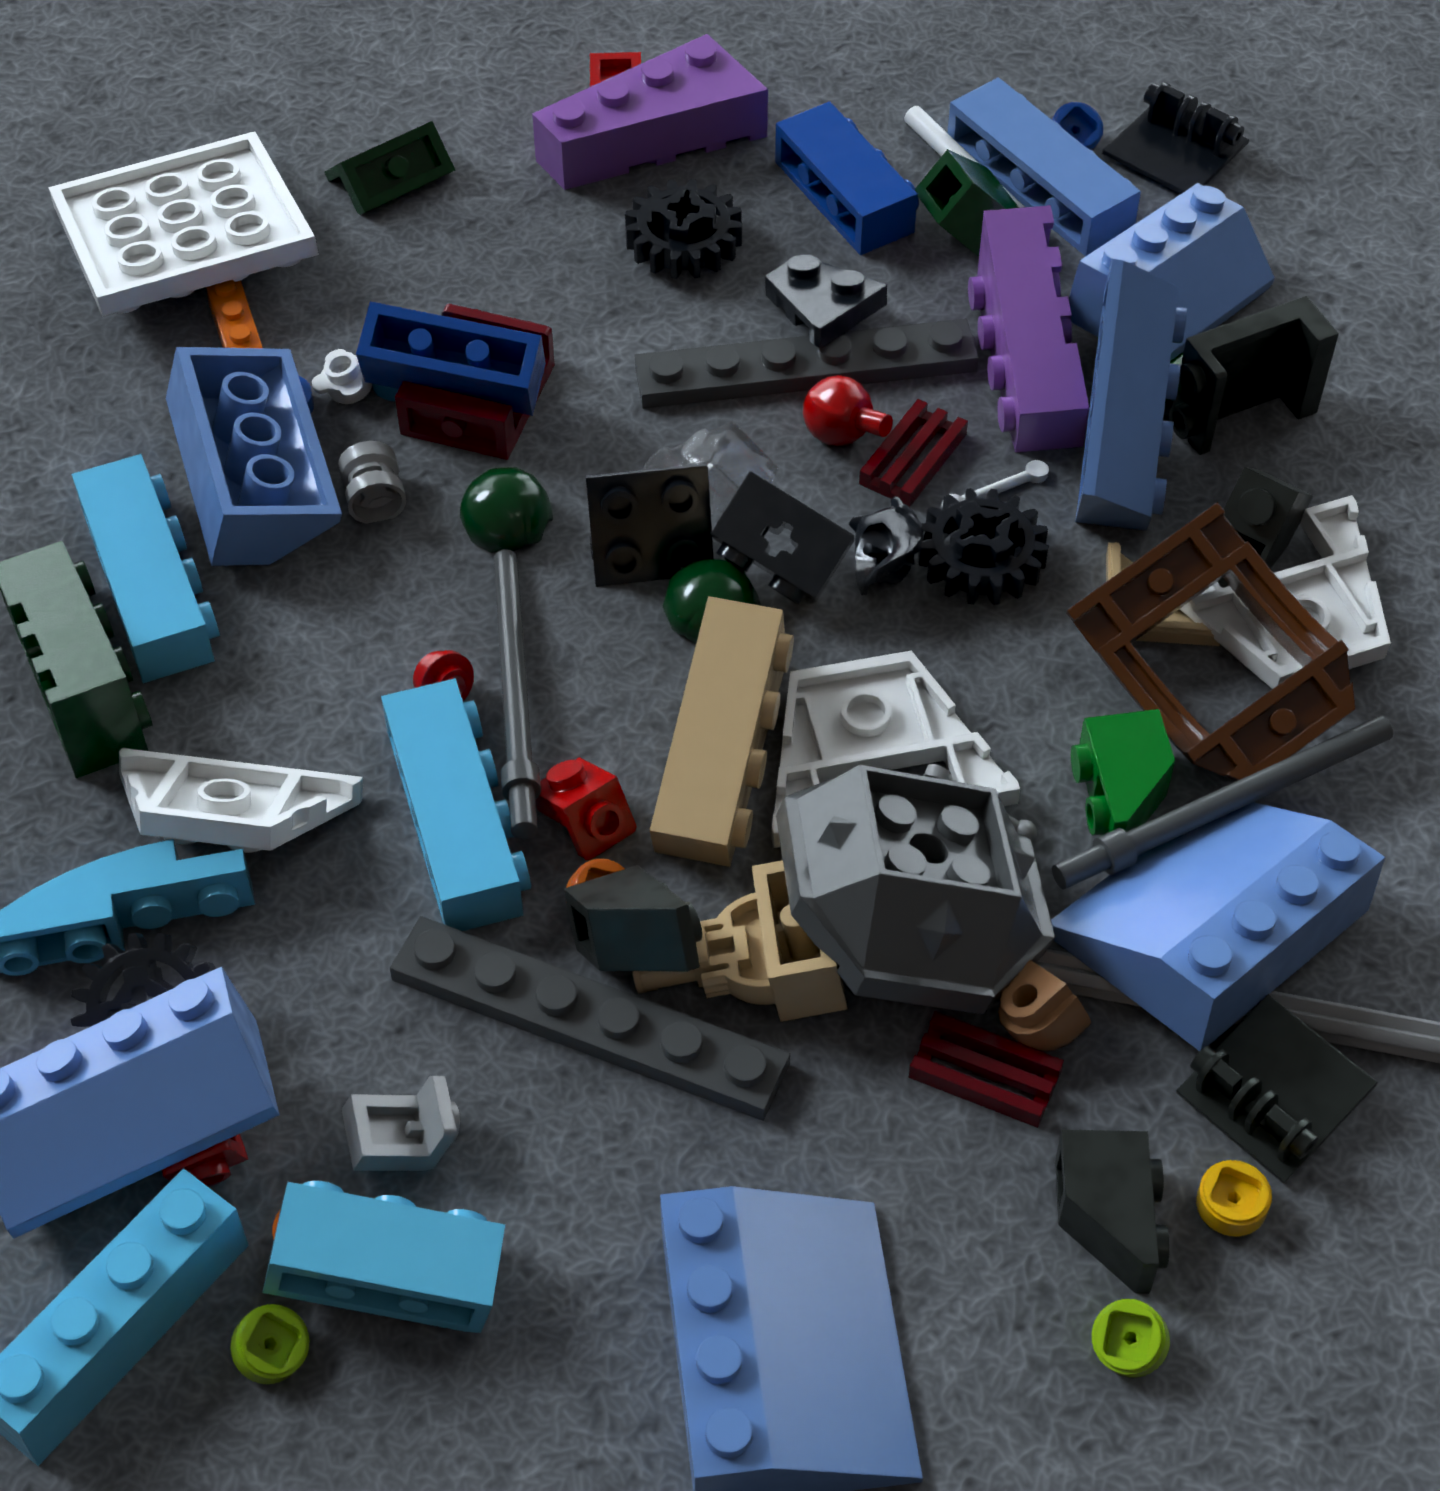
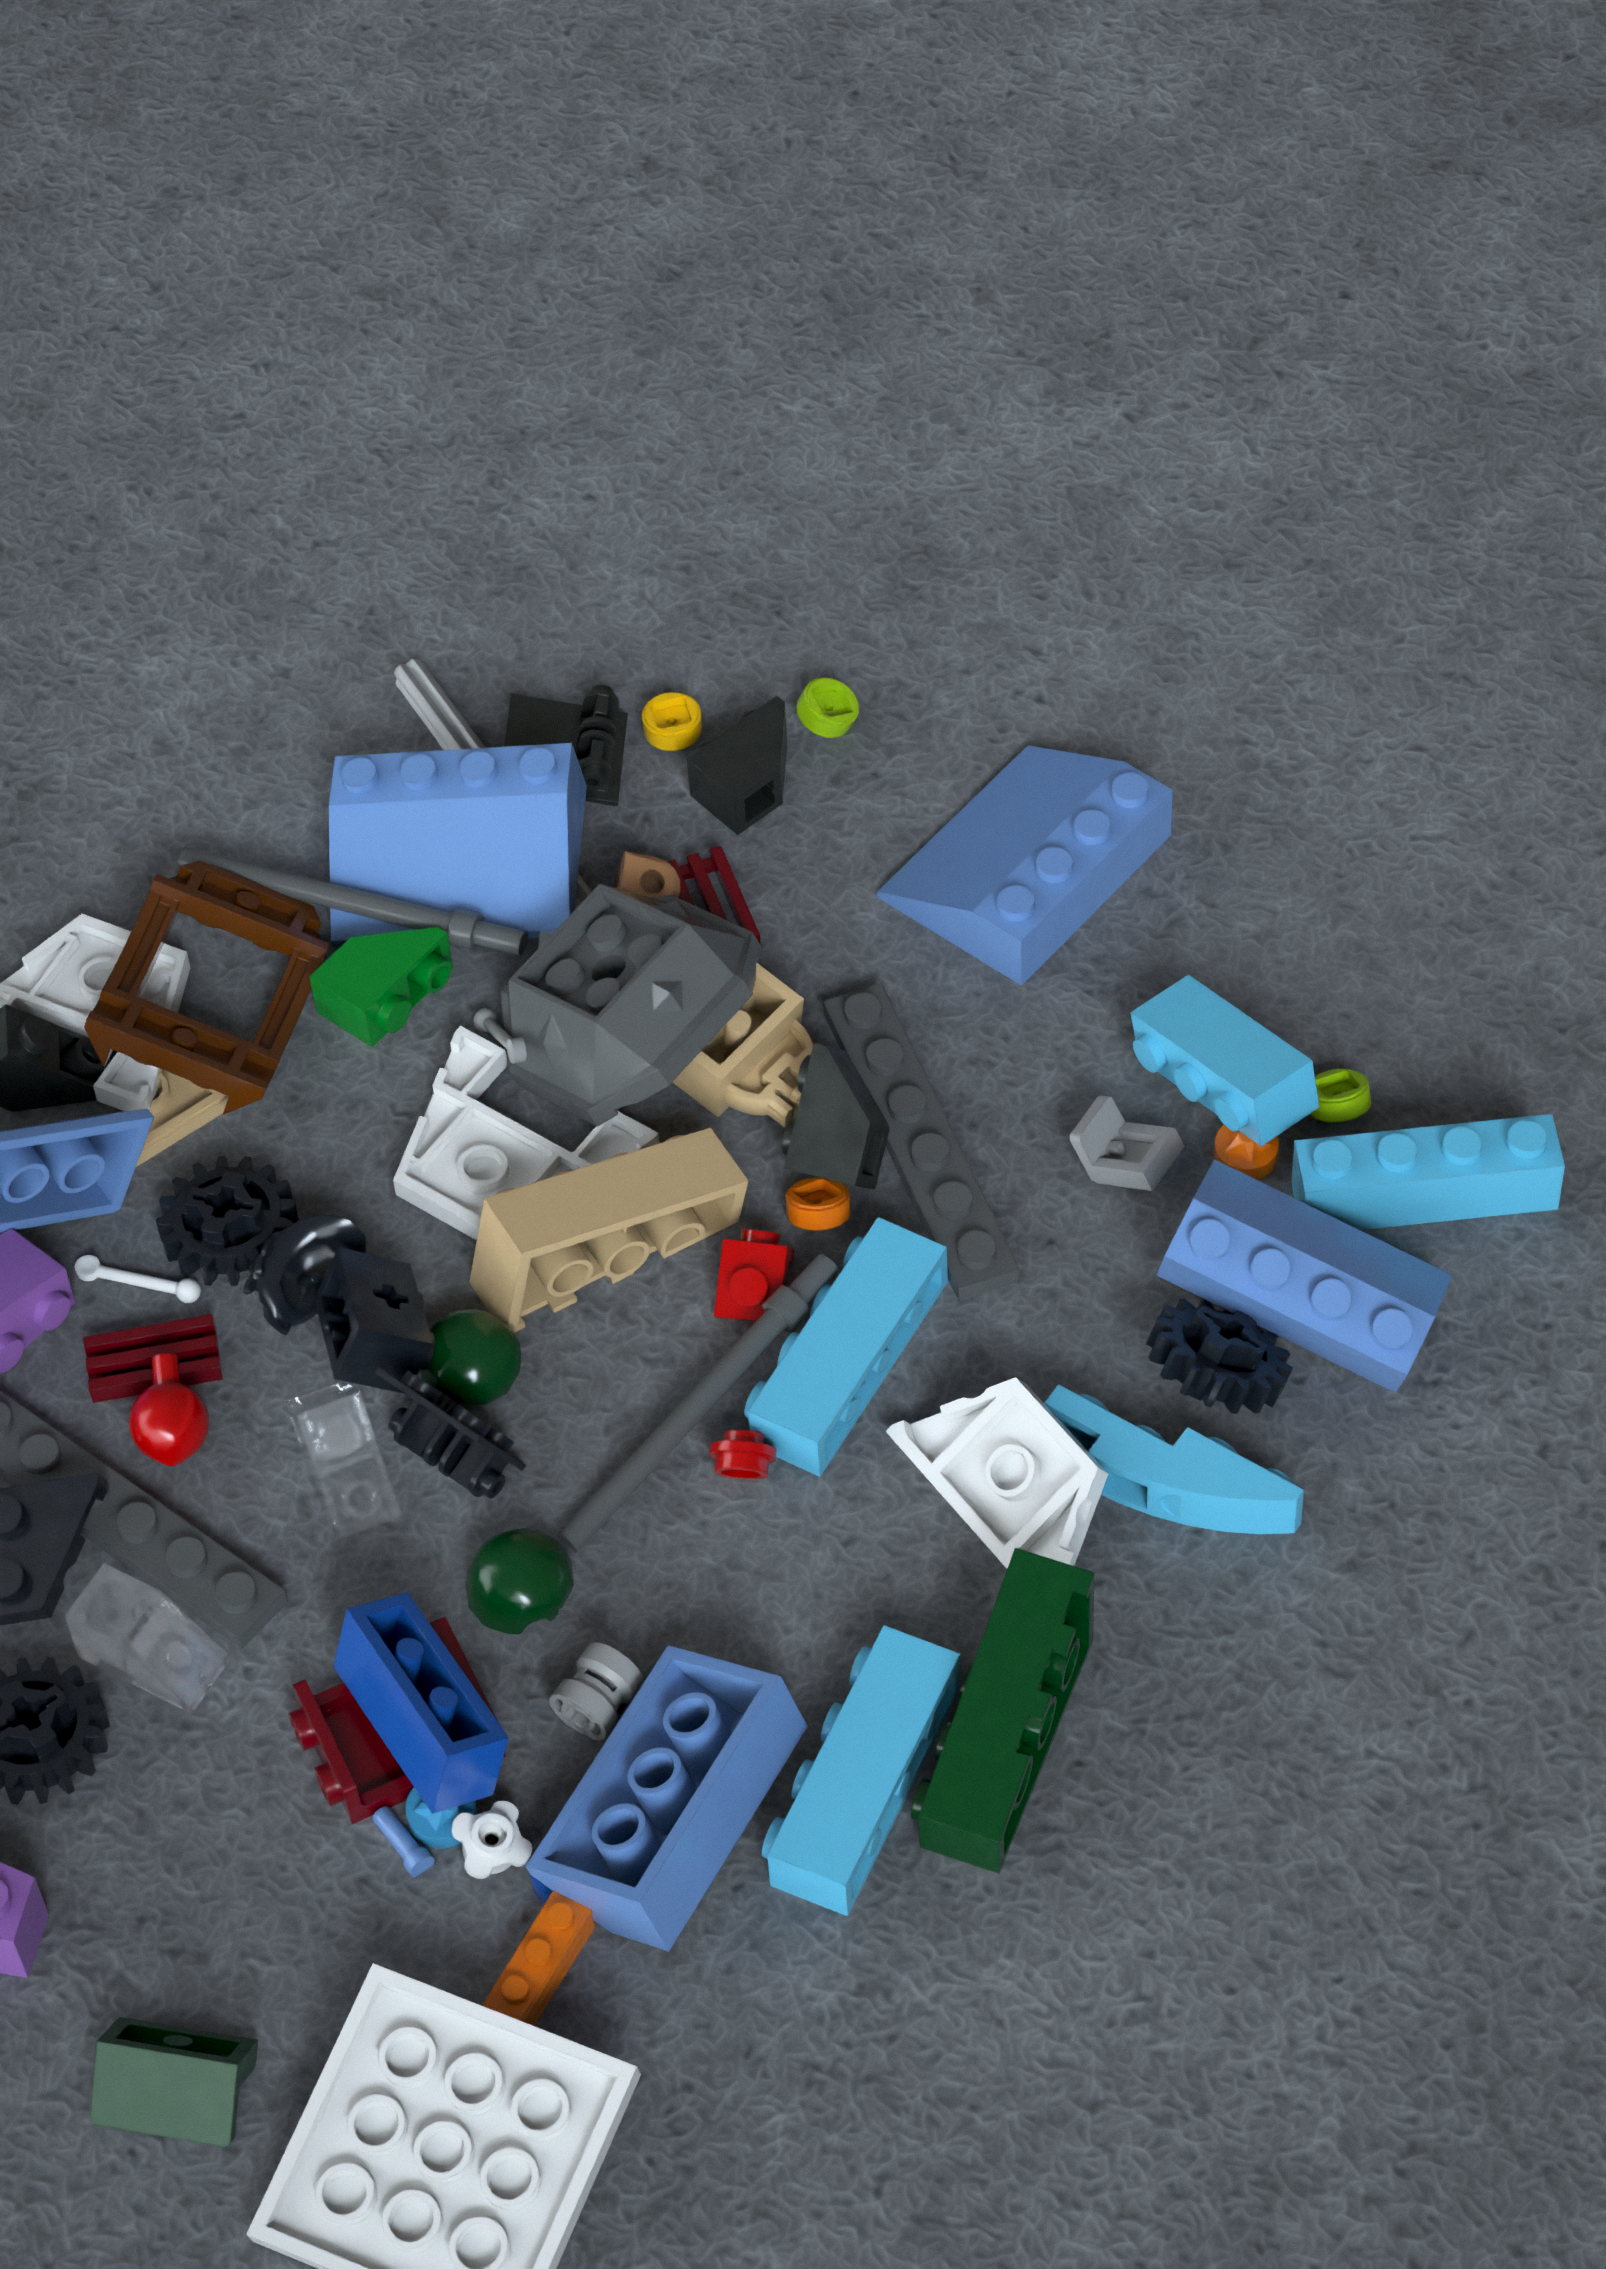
camera: 130 degrees left, 0 degrees up
(680, 297) = (144, 1639): none -> clear slope

